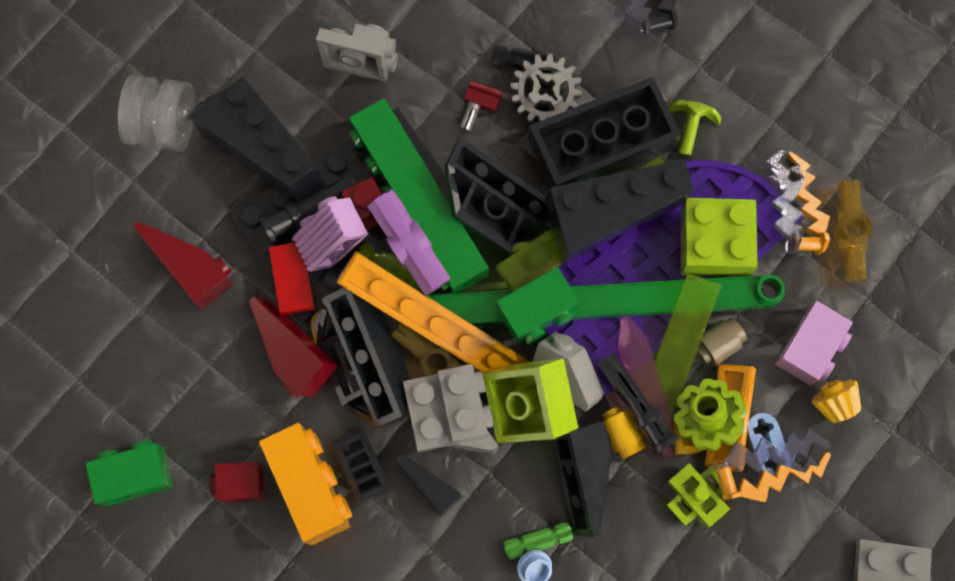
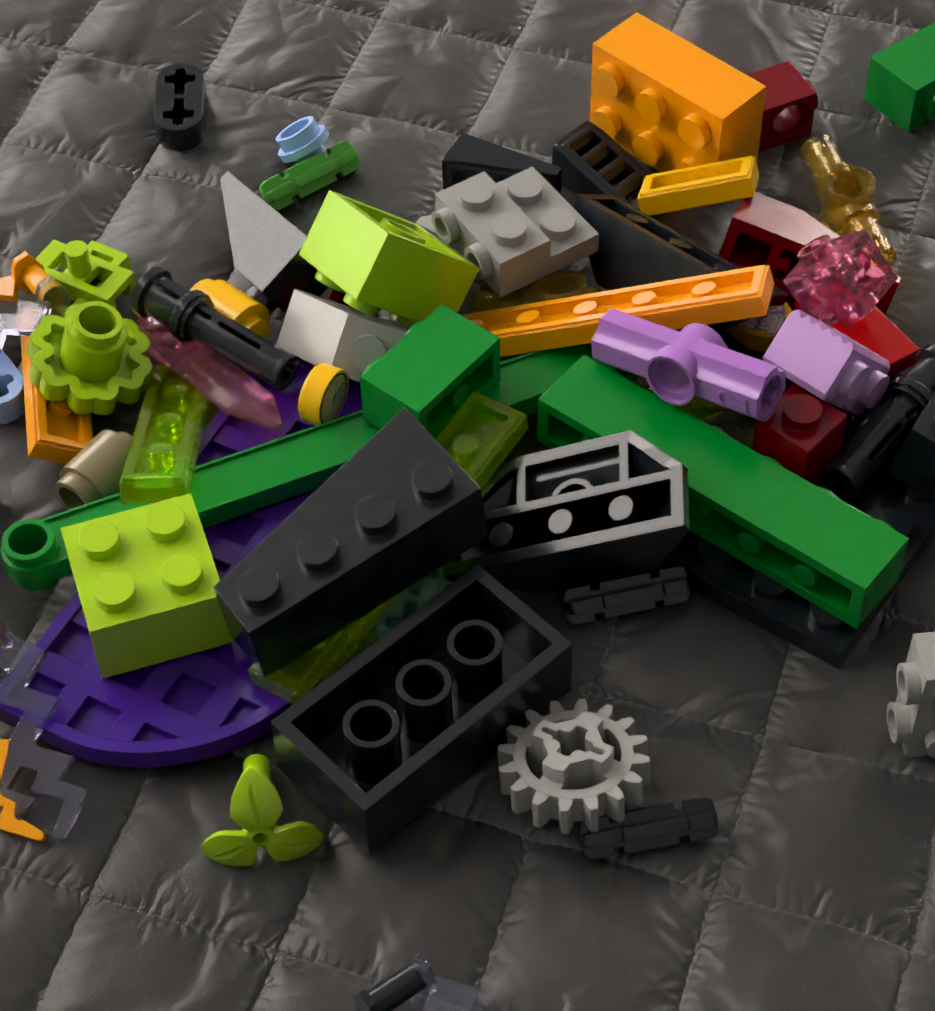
camera: 160 degrees right, 25 degrees down
(238, 402) = (845, 193): none -> clear yellow pin
(295, 283) = (840, 277): none -> clear pink brick
(323, 413) = (699, 186): none -> yellow tile
(479, 97) = (692, 723): dark red piece -> none
(593, 331) = (323, 394): none -> yellow tile

